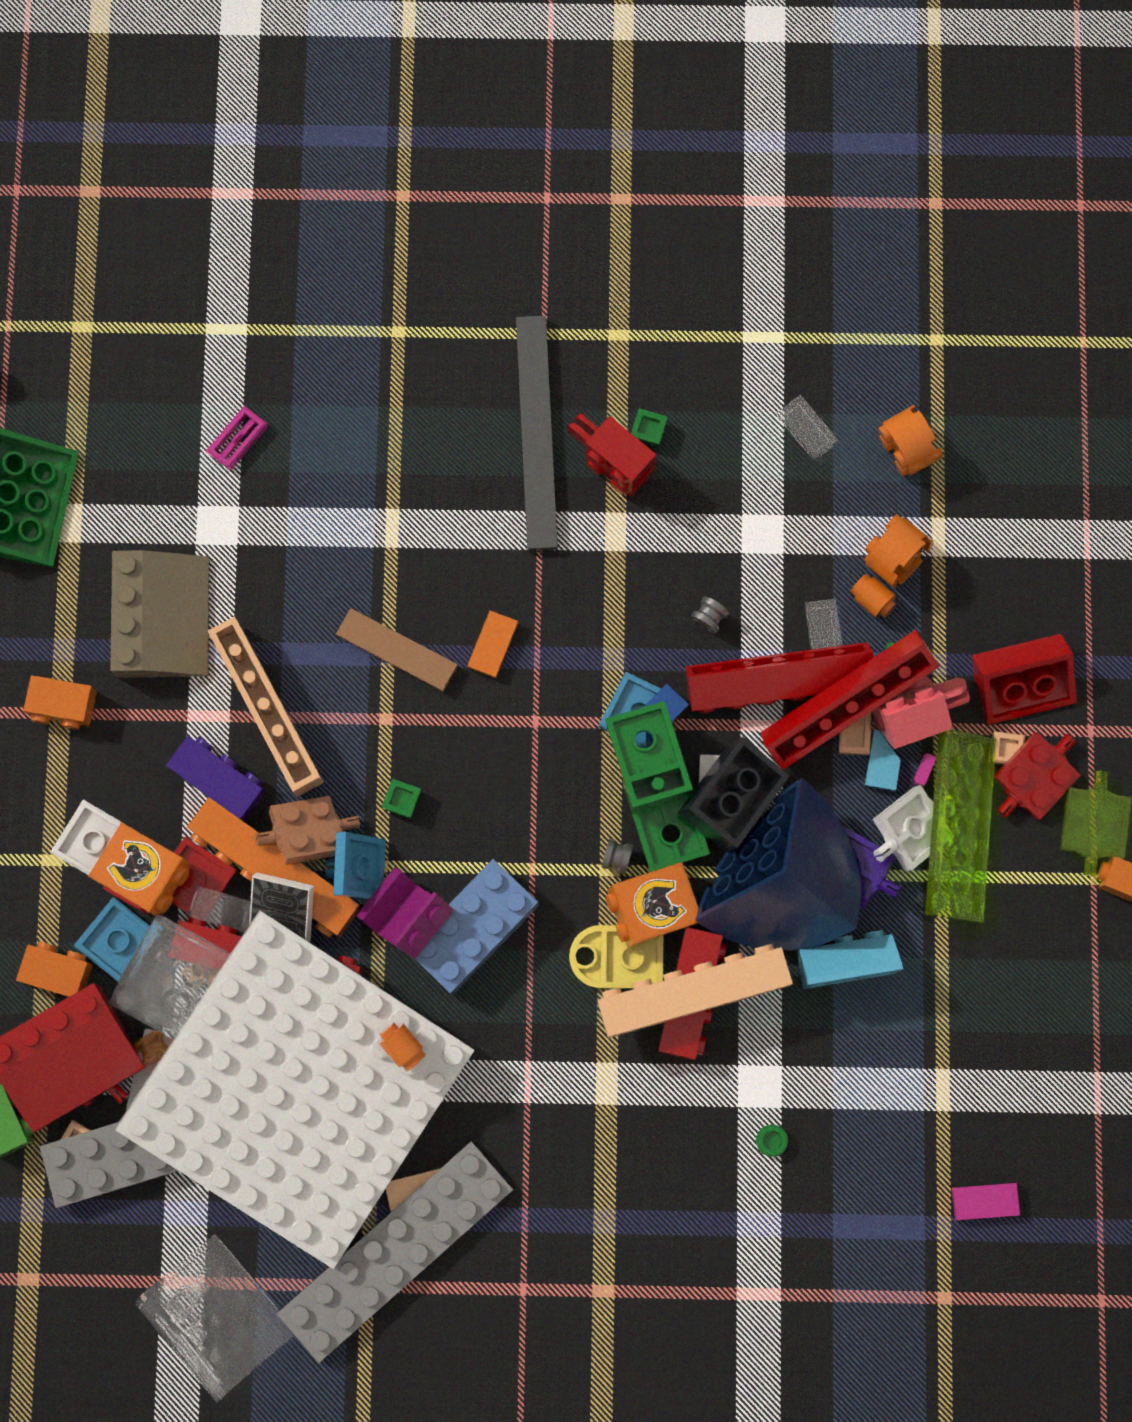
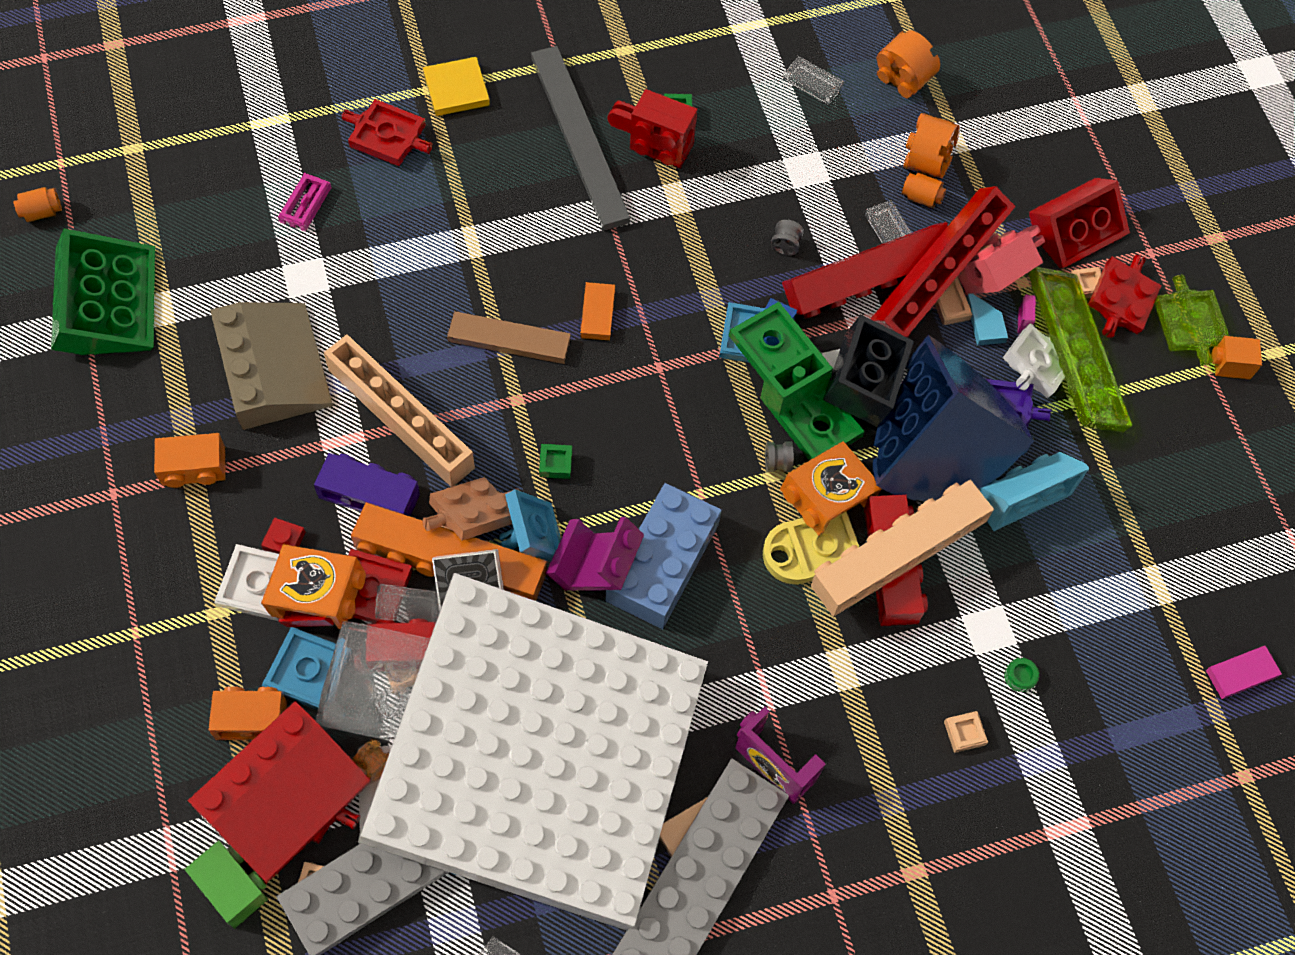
camera: 25 degrees left, 15 degrees down
(127, 804) = (282, 533): none -> red plate
(339, 378) = (386, 132): none -> red plate
(401, 1046) = (638, 667): orange brick -> none
(426, 337) = (456, 86): none -> yellow tile
(517, 1188) = (770, 764): none -> magenta panel
(698, 1178) = (965, 731): none -> light nougat tile

